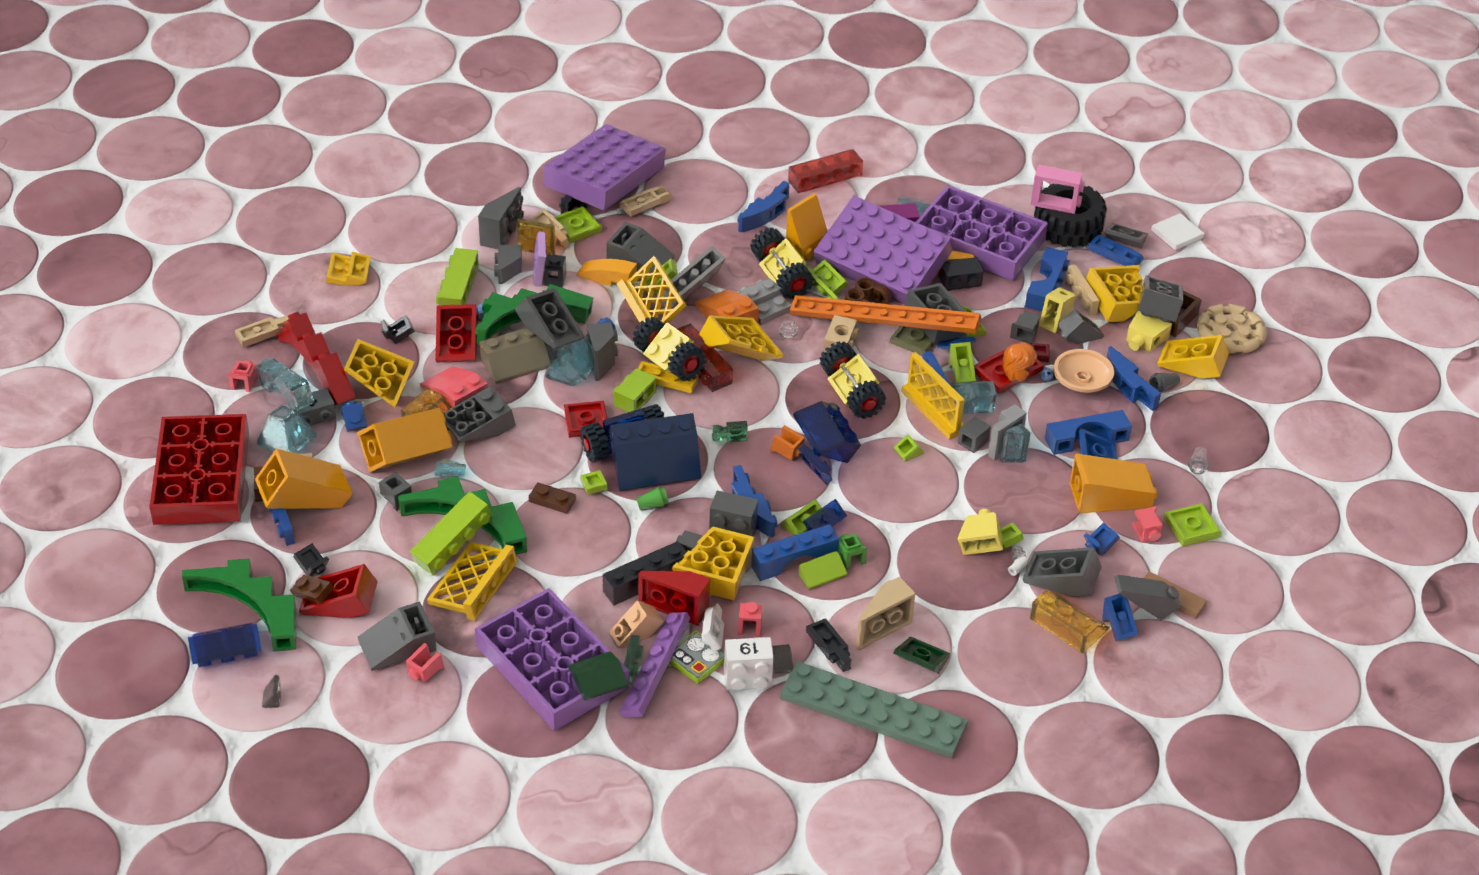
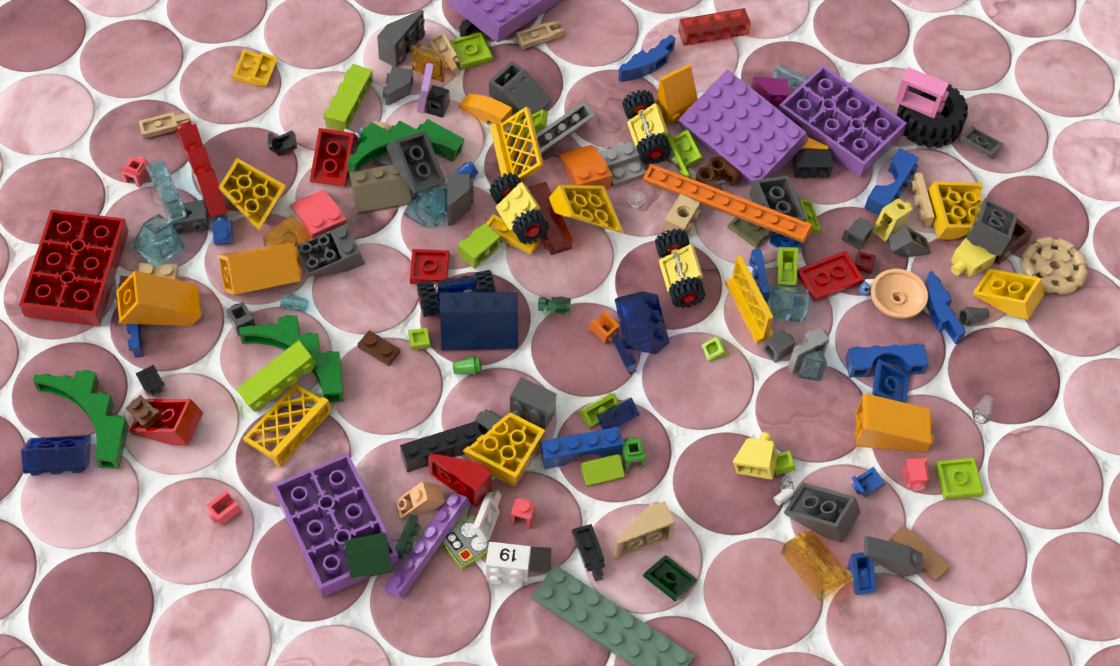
camera: 10 degrees right, 15 degrees up
(272, 693) = (87, 514): clear smoke slope -> none
(397, 636) = (206, 476): slope -> none
(741, 486) = (552, 381): blue slope -> none
(1017, 359) = (837, 275): orange hair -> none
(1115, 251) = (966, 161): blue plate -> none
(1177, 231) = (1032, 146): white tile -> none

